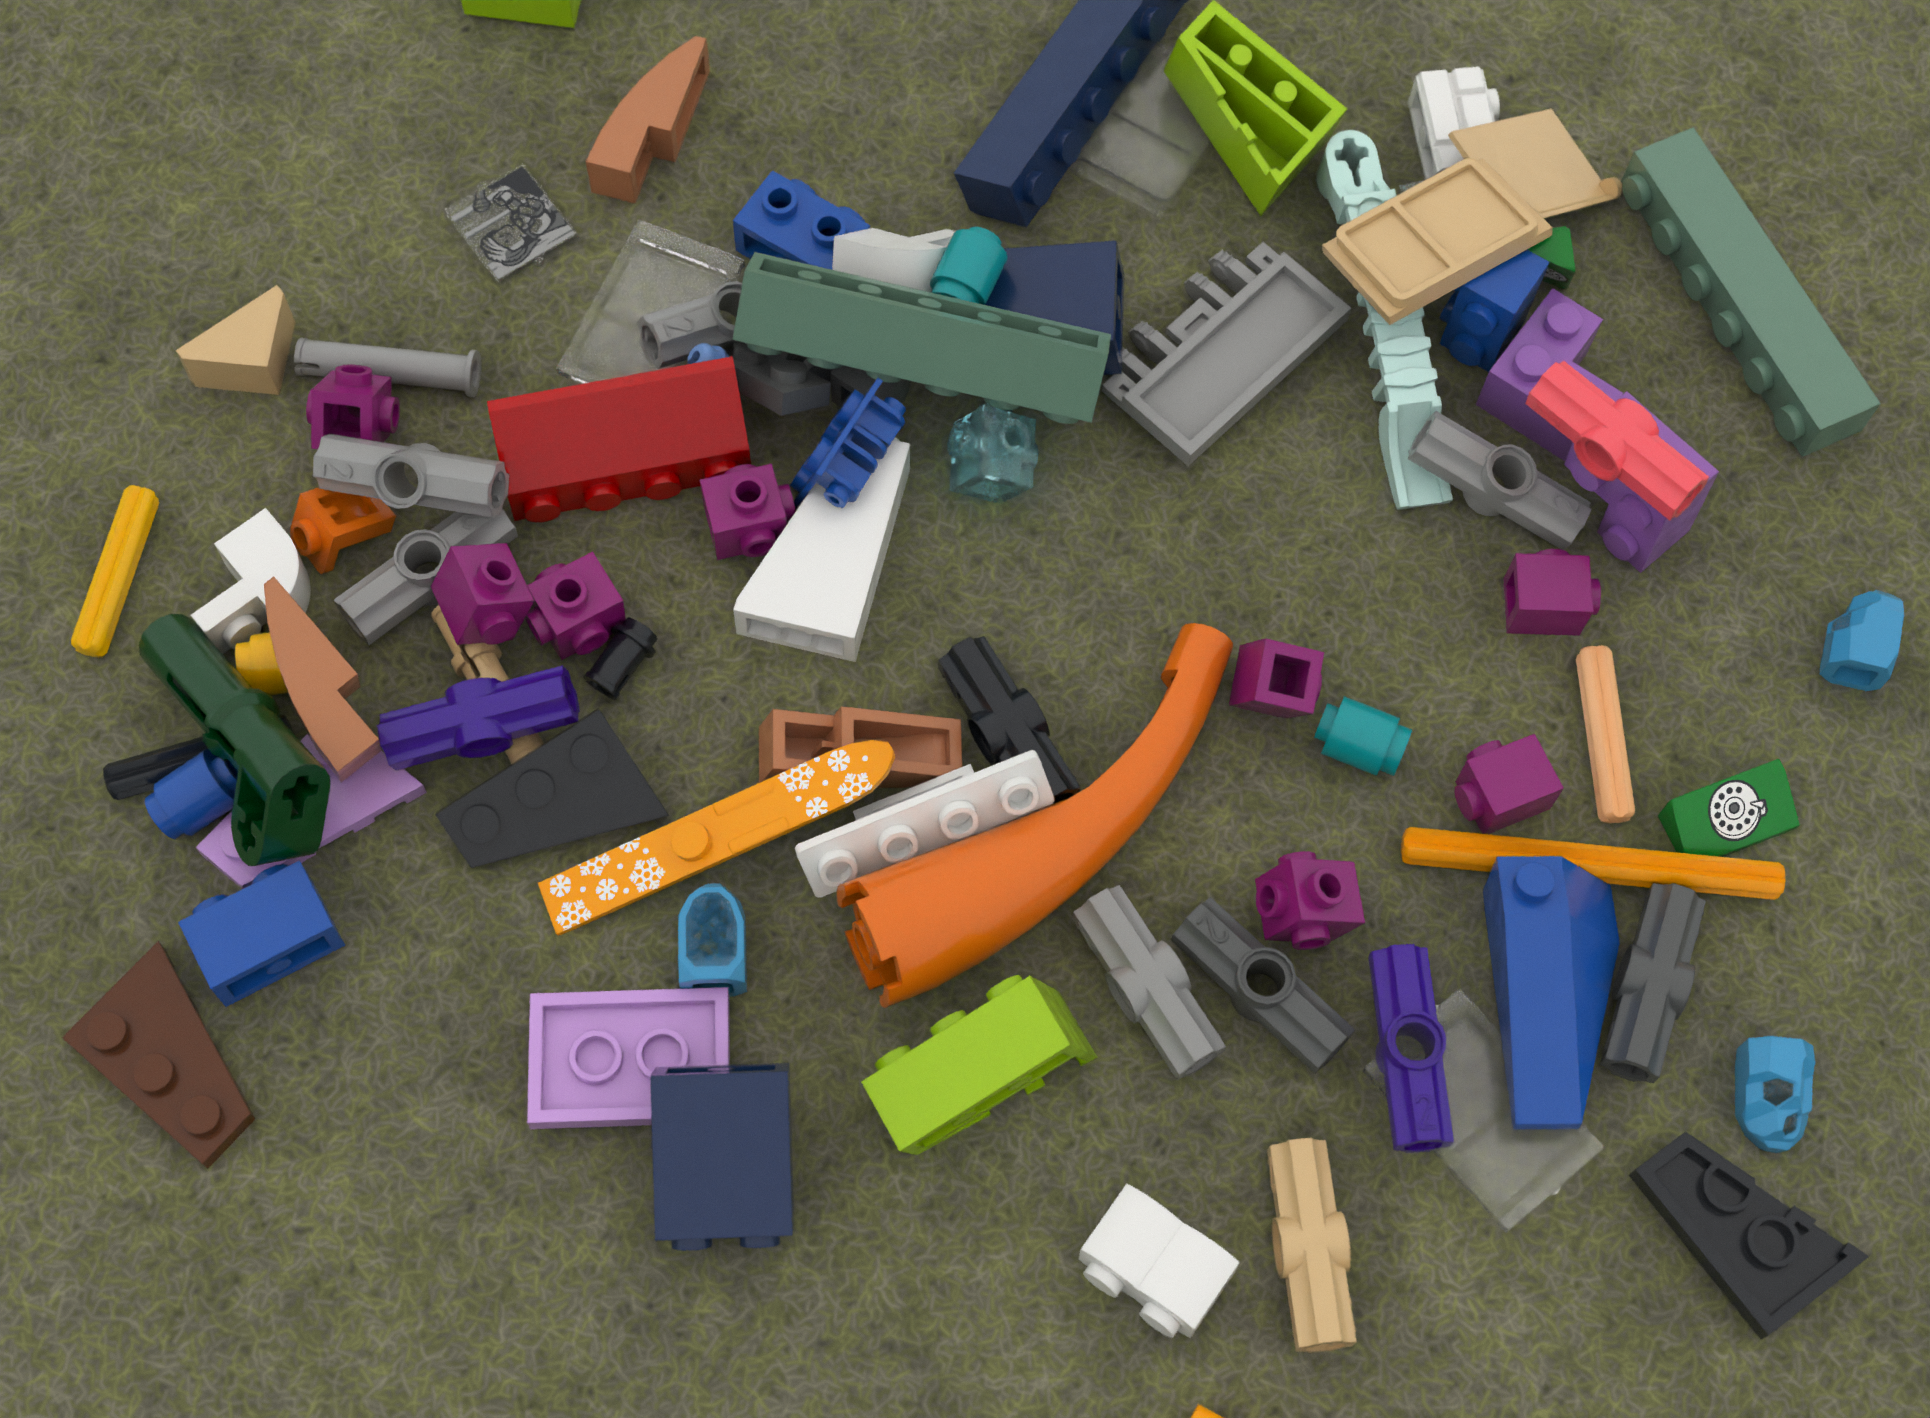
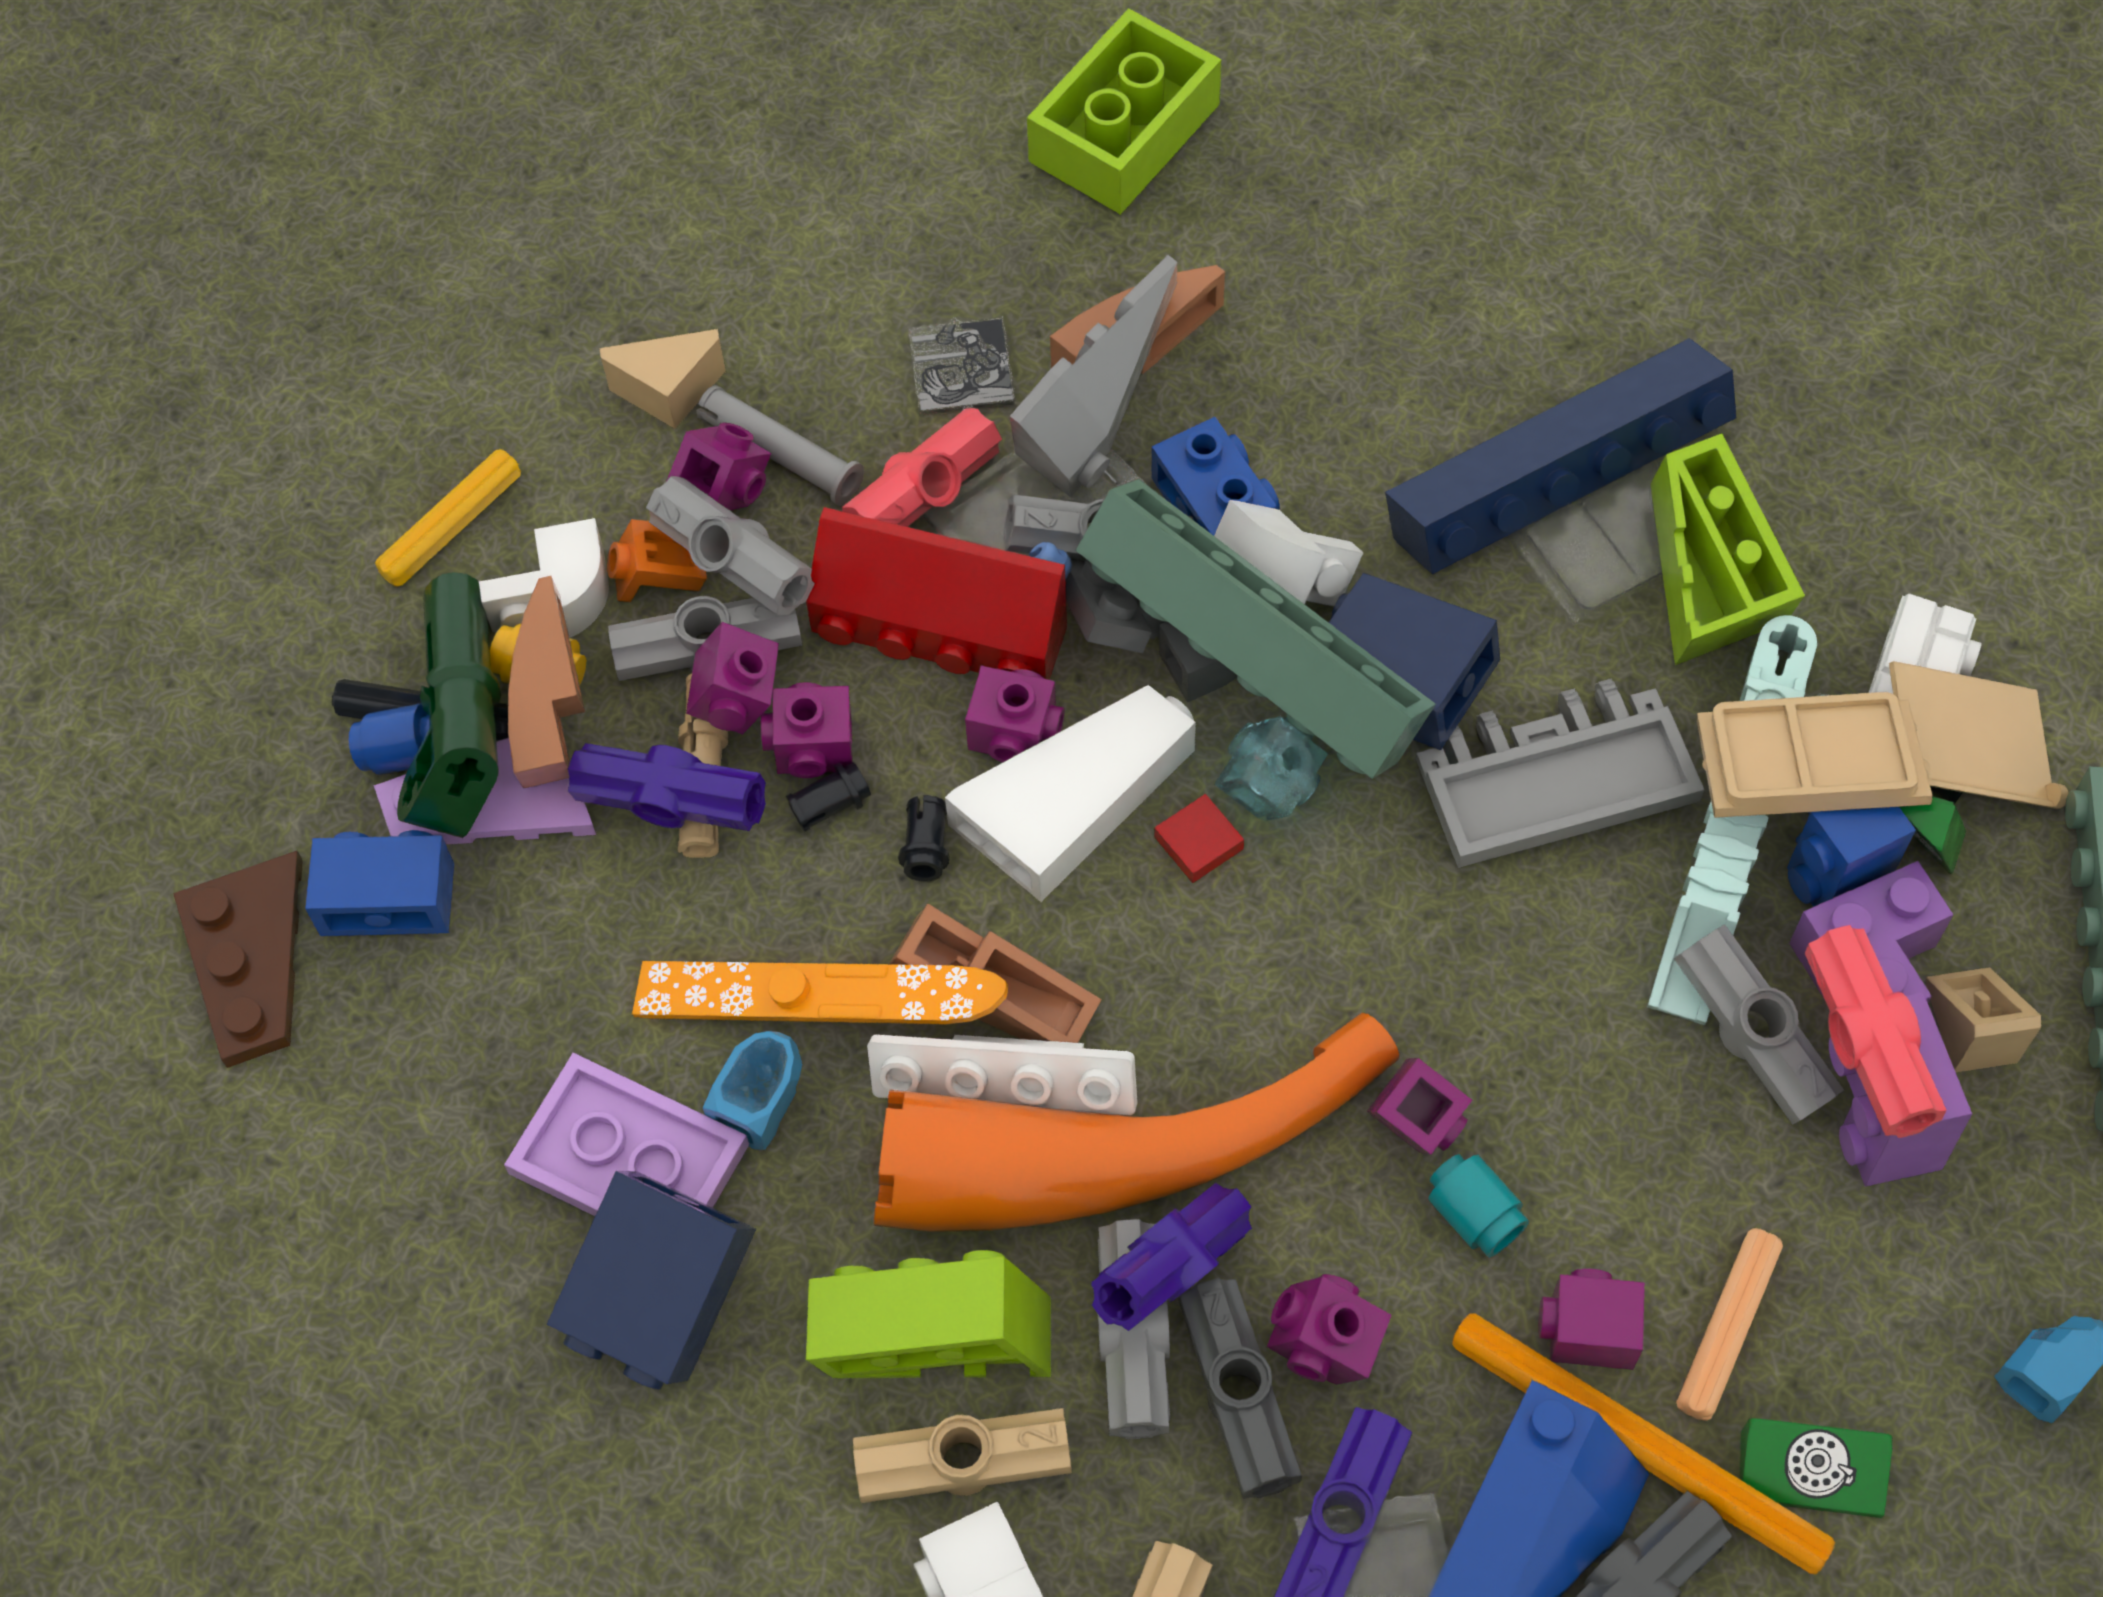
camera: 35 degrees right, 5 degrees down
(546, 330) = (930, 472): none -> coral piece
(553, 796) = (698, 889): black wing -> none
(656, 212) = (1078, 407): none -> light grey wedge
(734, 667) = (925, 832): none -> black pin
(850, 447) = (1115, 710): blue hinge -> none
(959, 543) = (1199, 838): none -> red tile
(970, 266) = (1339, 583): teal brick -> none
(1000, 715) = (1143, 1015): black piece -> none
(1039, 1188) = (914, 1465): none -> tan piece
(1156, 905) = (1171, 1256): none -> dark purple piece
(1550, 593) = (1750, 1159): magenta brick -> none
(1665, 386) = (1981, 1019): none -> tan slope

